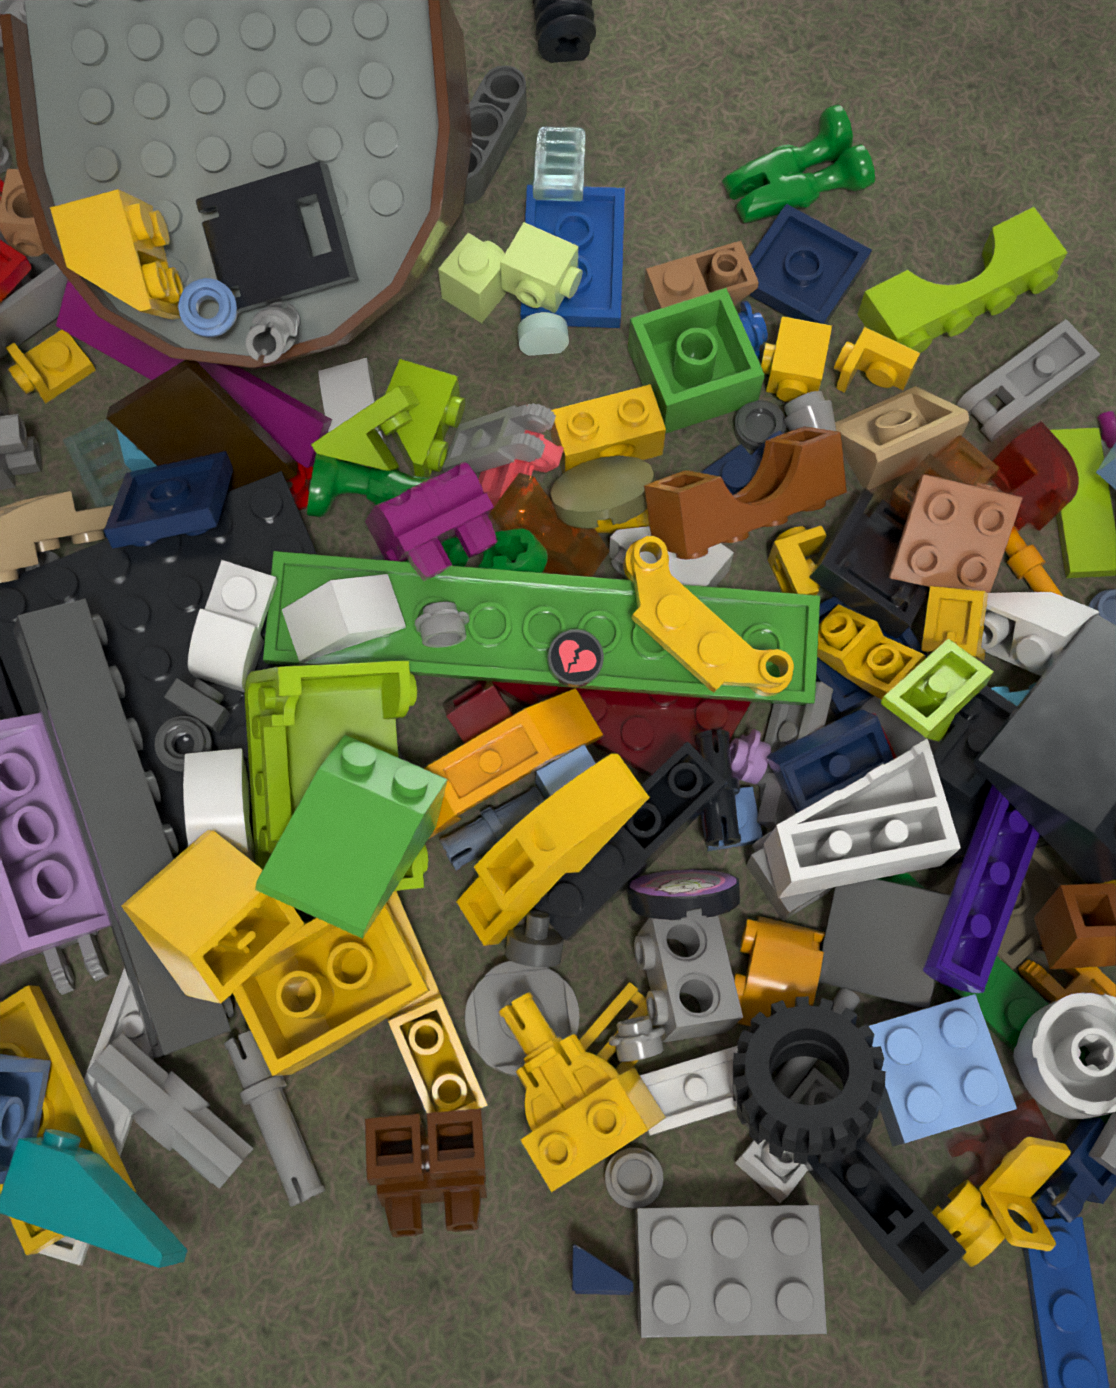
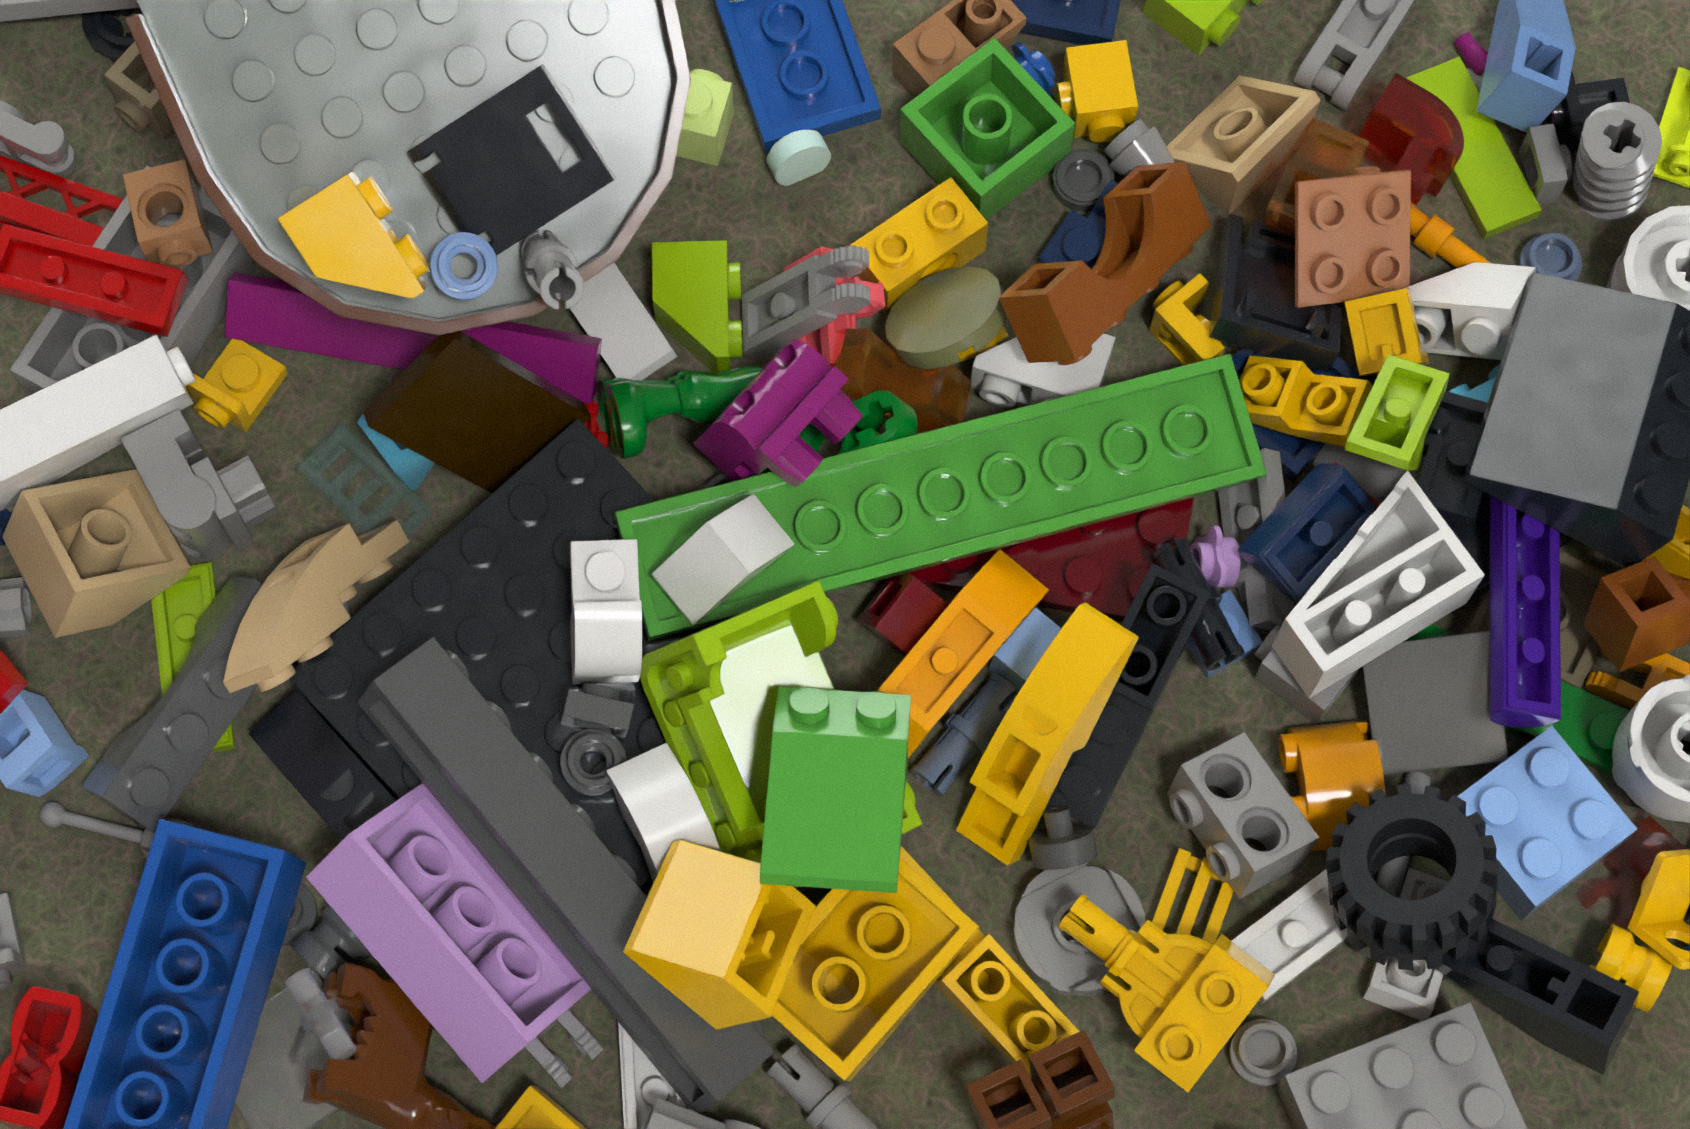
camera: 20 degrees left, 0 degrees up
(169, 500) = (471, 494): dark blue plate -> none
(358, 437) = (645, 352): lime slope -> none
(442, 625) = (836, 529): light grey plate -> none
(540, 268) = (773, 83): yellowish green brick -> none
(575, 658) = (993, 515): tile -> none
(637, 1039) = (1214, 902): light grey plate -> none
(674, 892) = (1198, 731): tile -> none
(693, 631) = (1110, 439): yellow plate -> none
(881, 359) = (1193, 58): yellow bracket -> none

